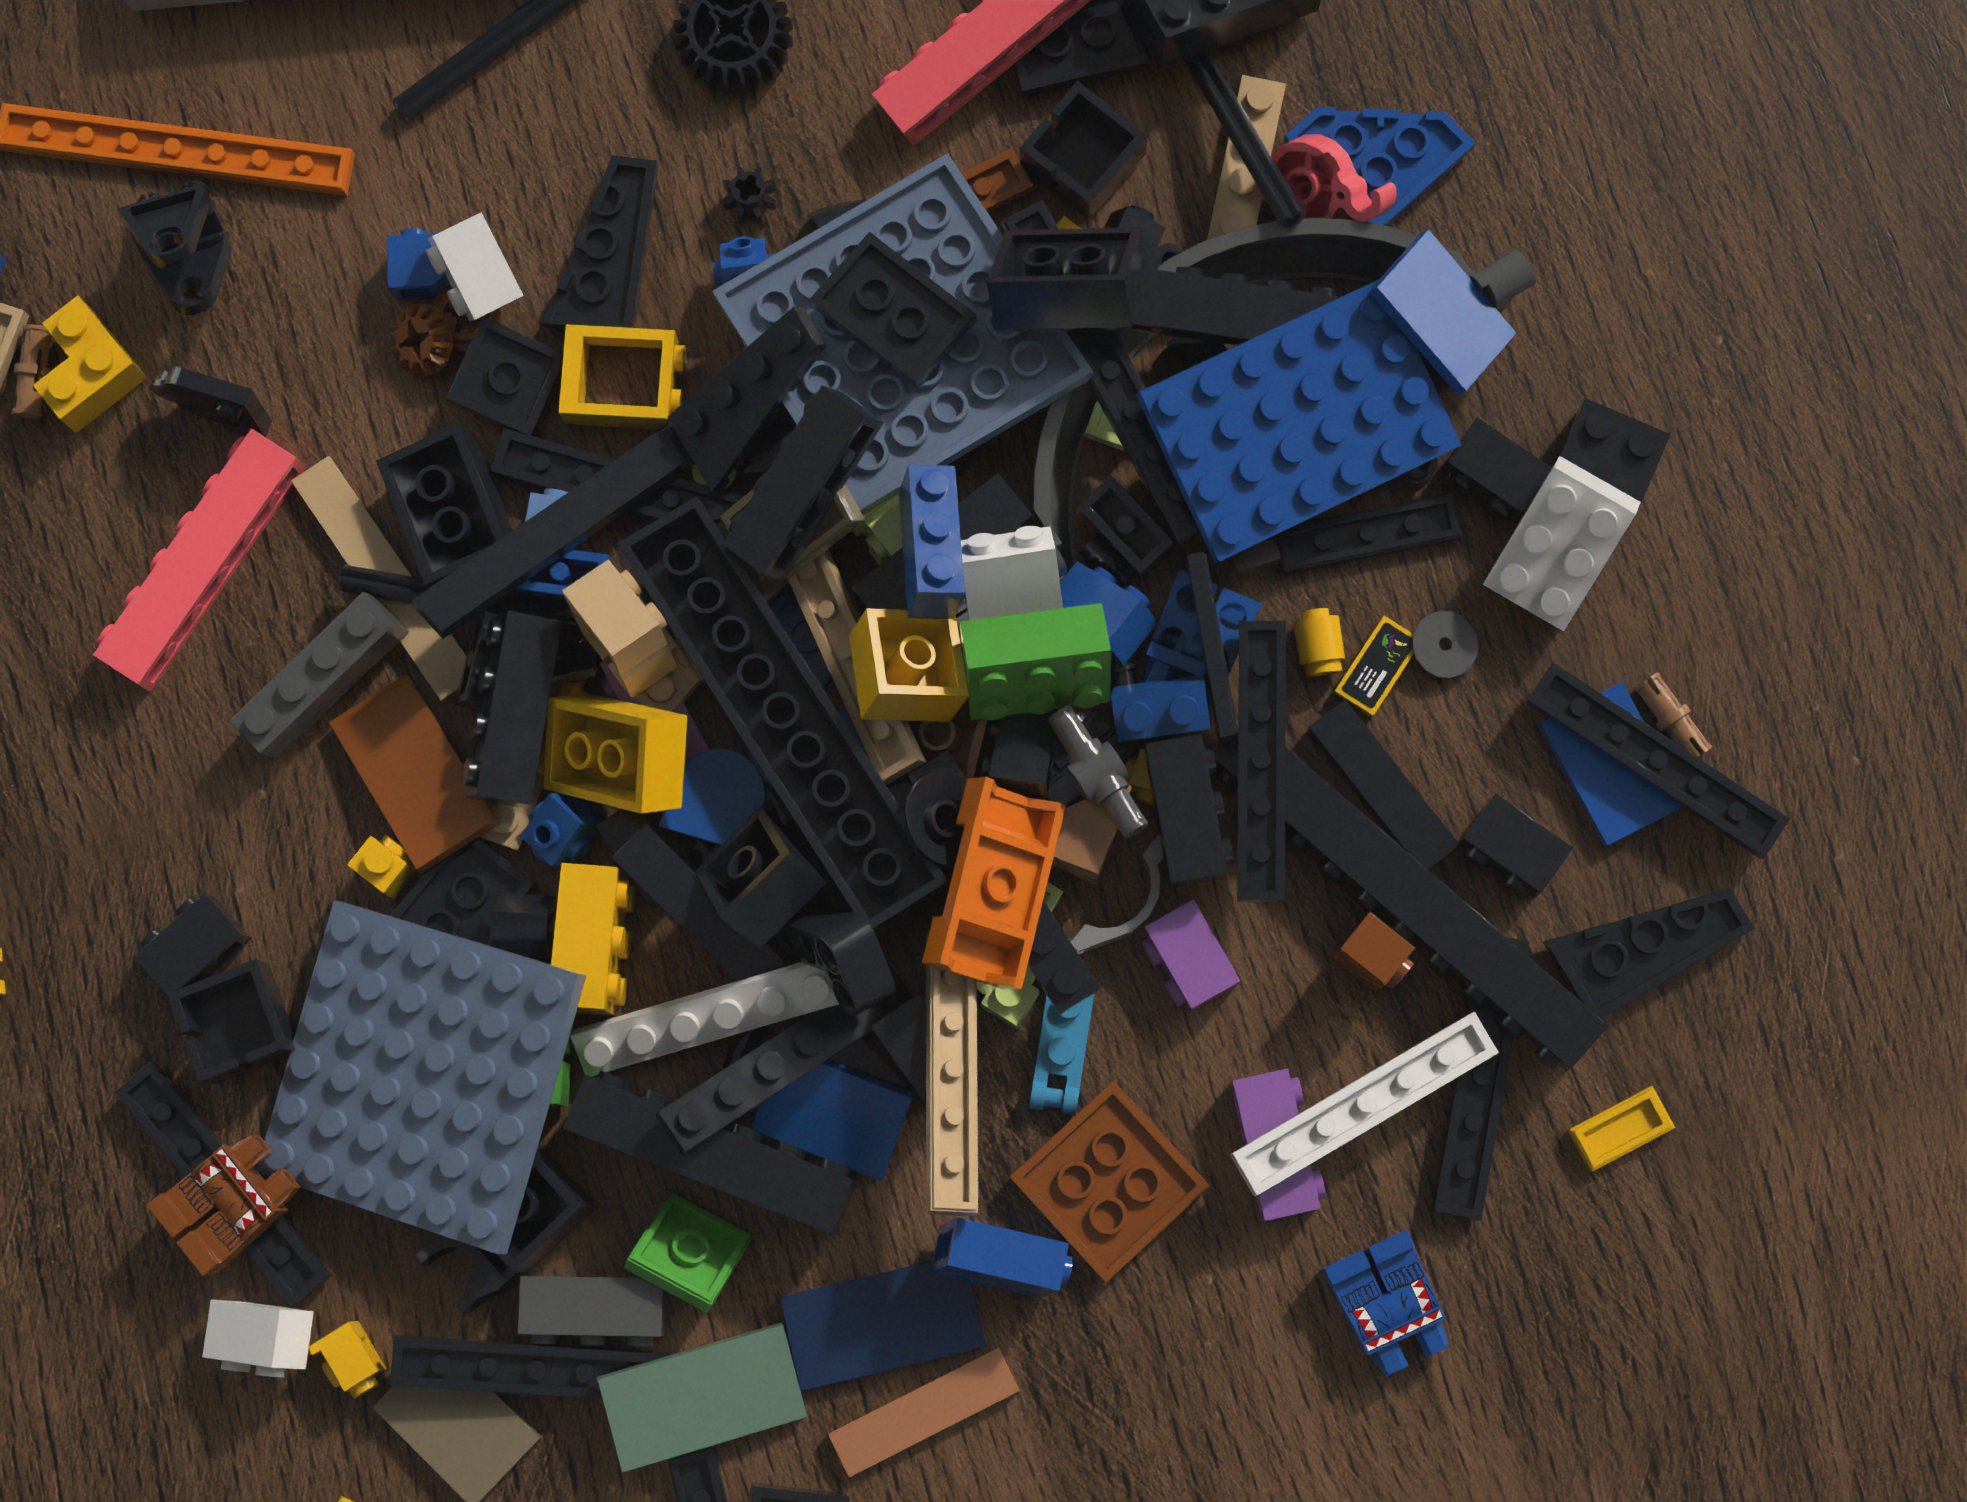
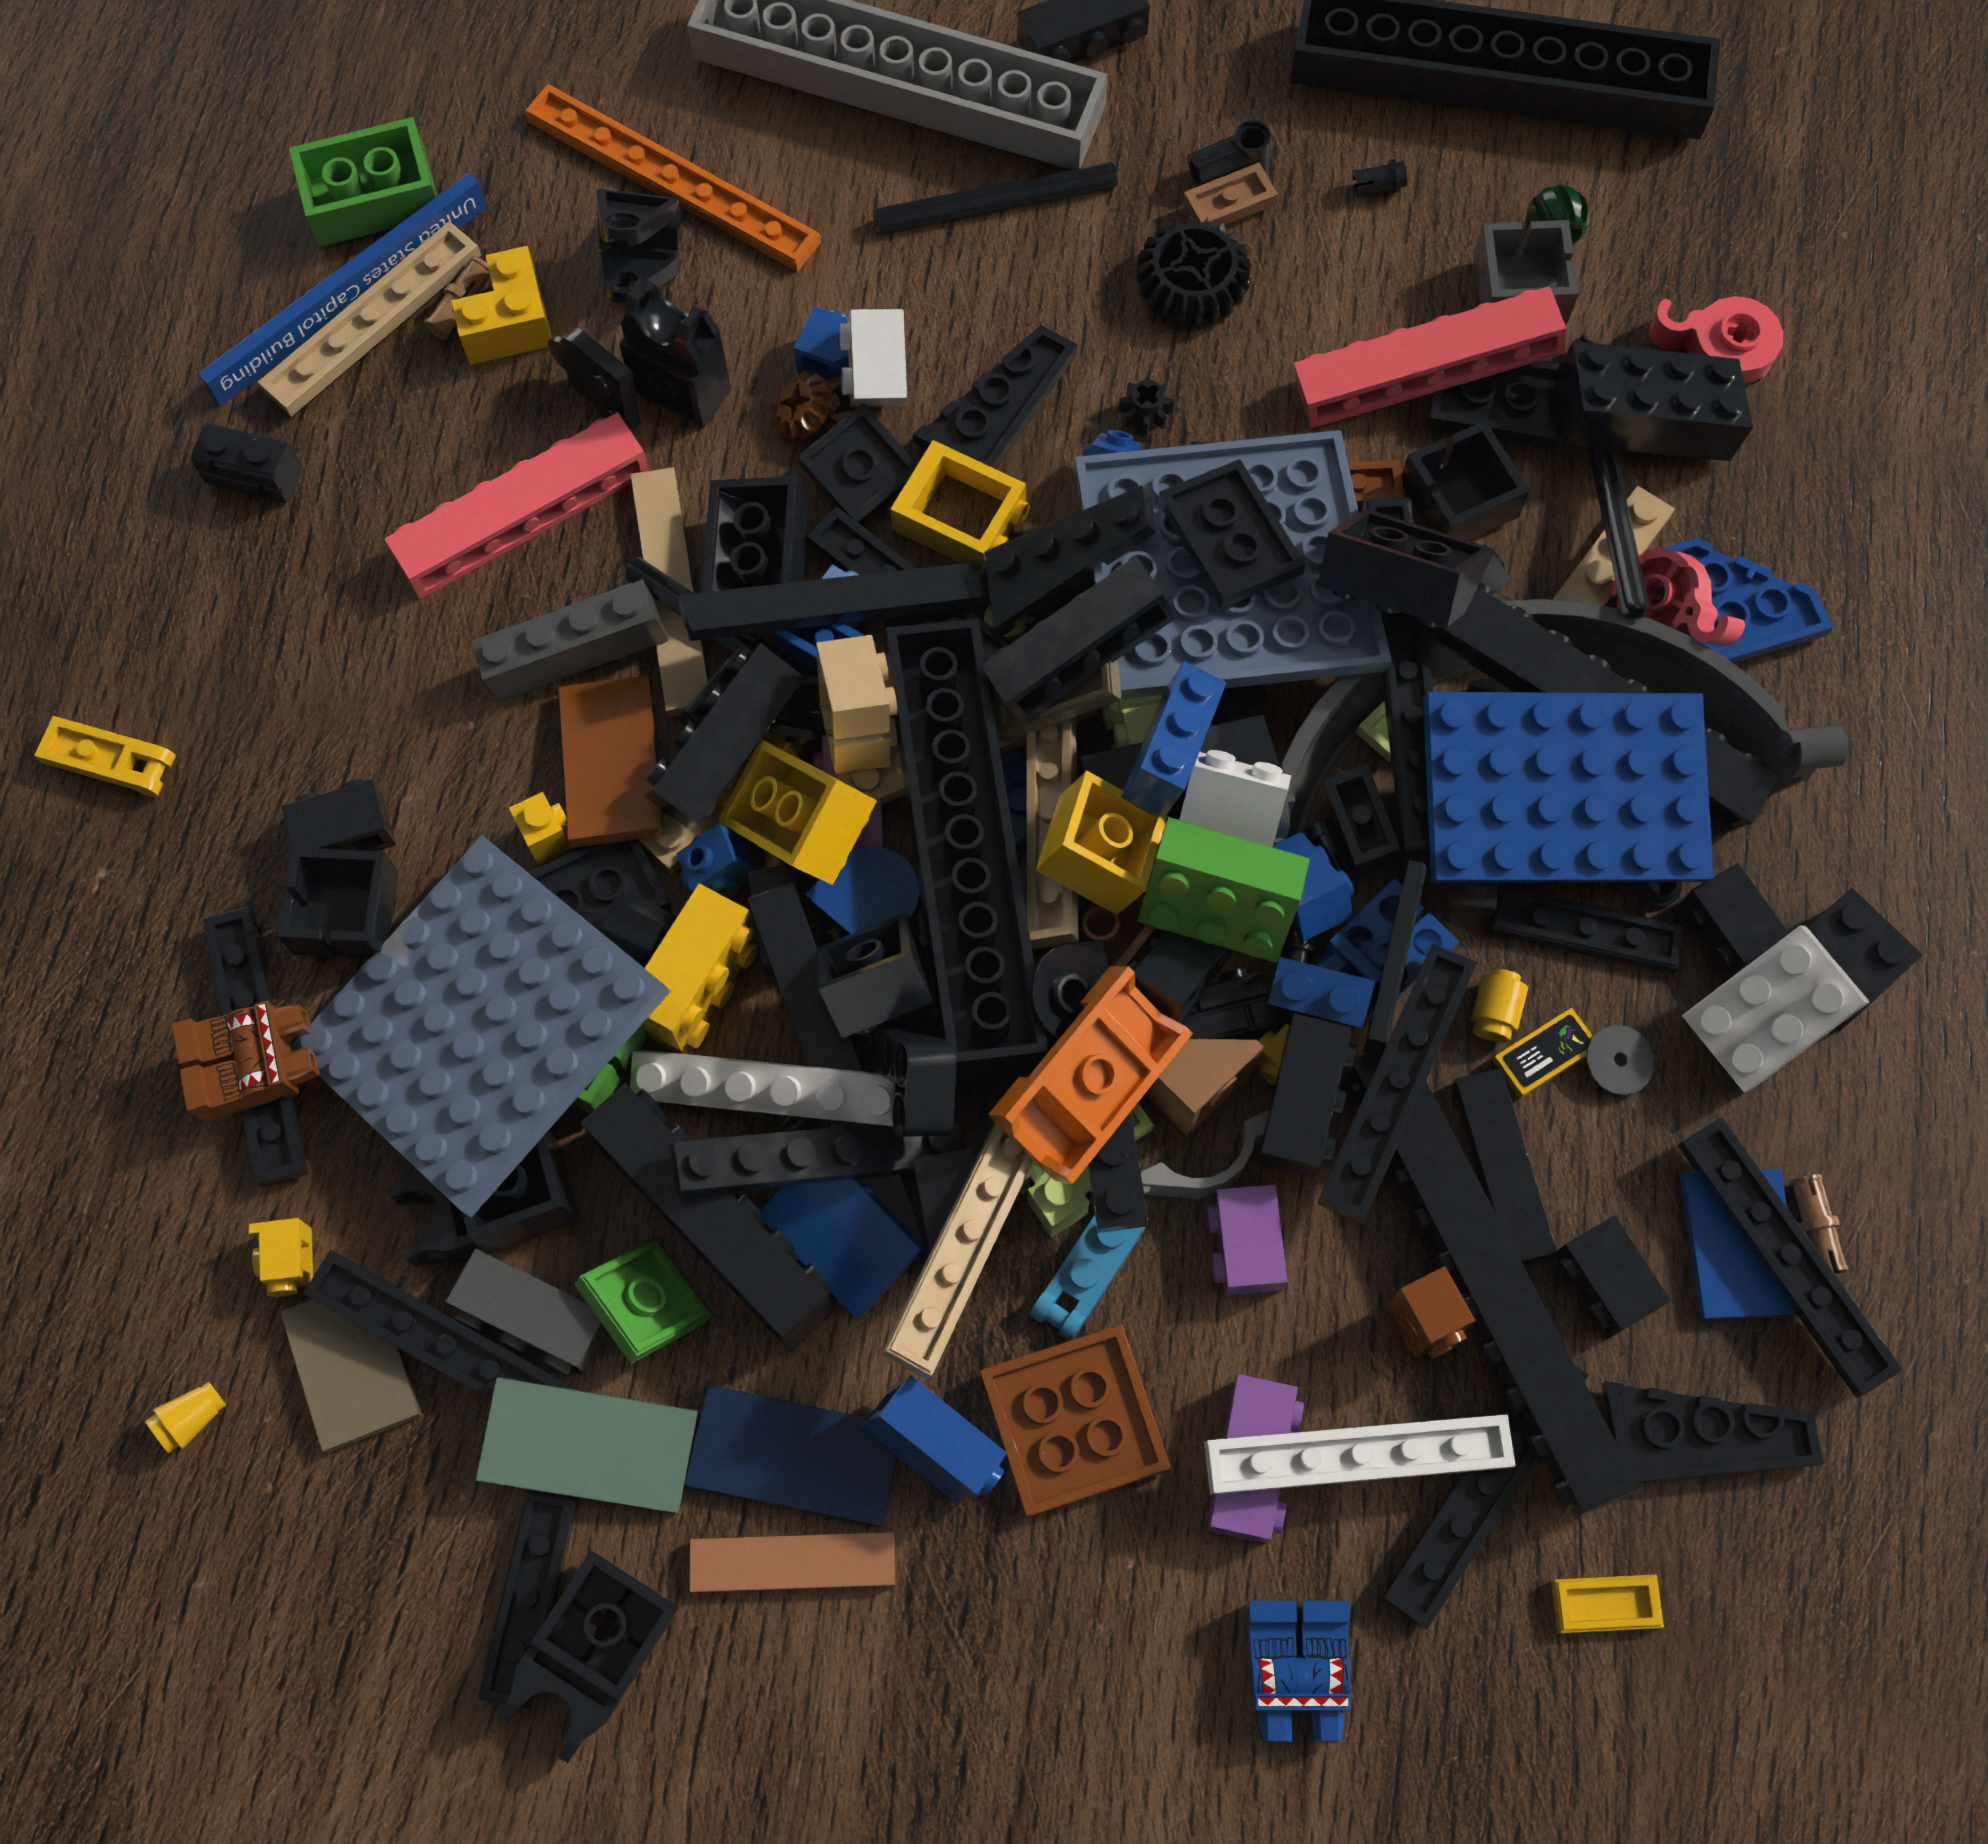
camera: 20 degrees right, 10 degrees down
(257, 1335) = (209, 1194): white brick -> none
(280, 351) = (674, 354): none -> black brick
(1097, 772) = (1236, 1016): dark grey pin -> none
(1442, 312) = (1745, 749): tile -> none

